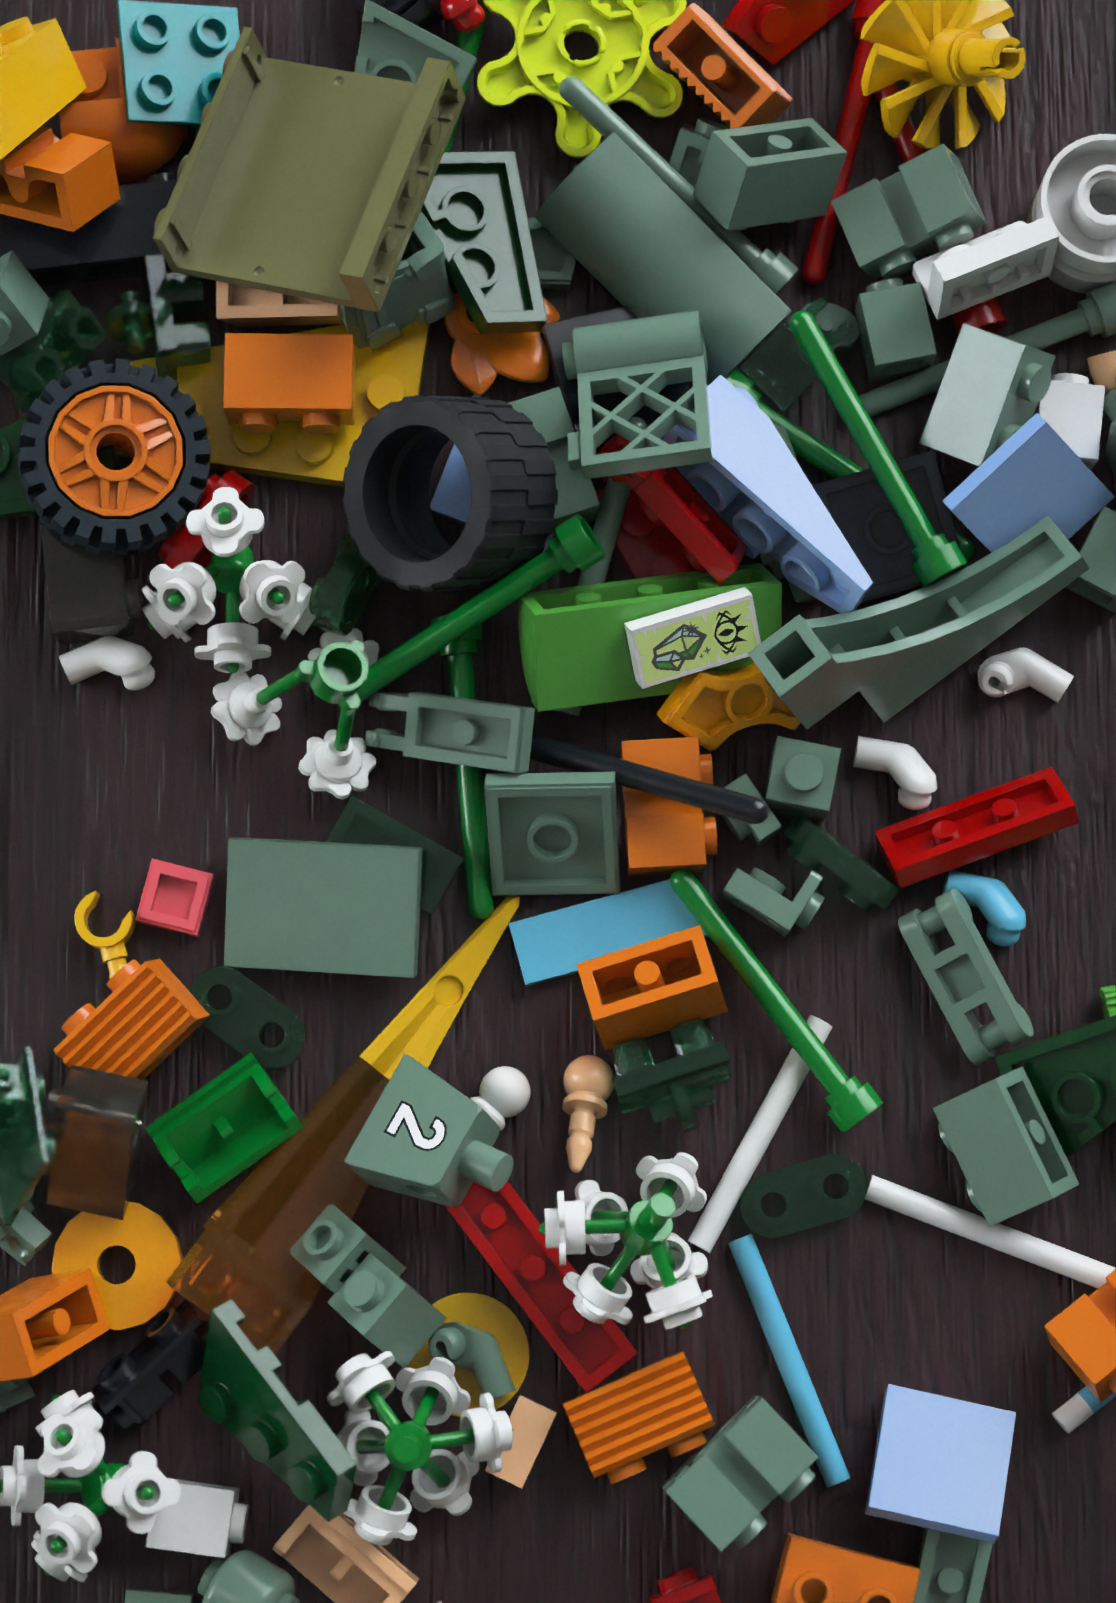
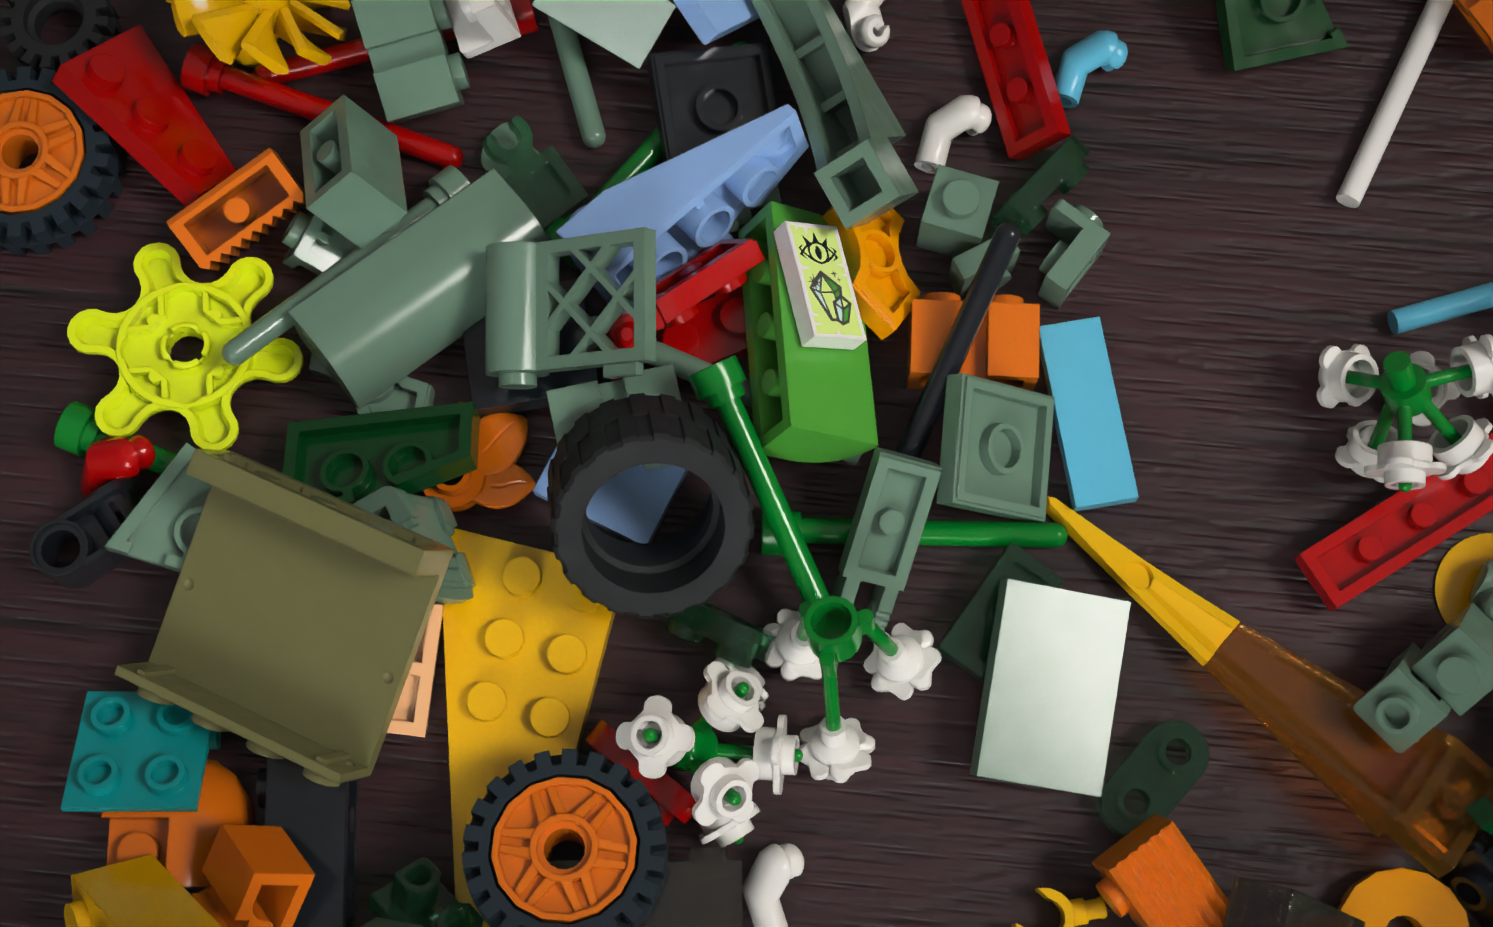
camera: 80 degrees left, 5 degrees down
(166, 295) = (392, 795): clear green hips -> none
(175, 898) = (1024, 843): coral tile -> none
(224, 1127) = (1275, 807): green hinge -> none
(289, 380) = (502, 665): orange brick -> none
(428, 1140) = (1300, 597): sand green torso -> none
(503, 1093) = (1247, 531): white bar -> none
(588, 1085) = (1237, 449): light nougat bar -> none
(651, 987) = (1154, 369): orange brick -> none
(673, 1085) = (1225, 339): clear green hips -> none
(754, 1144) = (1287, 290): white bar -> none
(803, 1196) = (1351, 257): clear green plate -> none
(847, 1097) = (1273, 202): green piece -> none
(894, 329) = (520, 82): sand green brick -> none
(932, 553) = (755, 62): green piece -> none
(964, 977) = (1157, 88): sand green plate -> none
(1005, 1147) = (1325, 67): sand green brick -> none

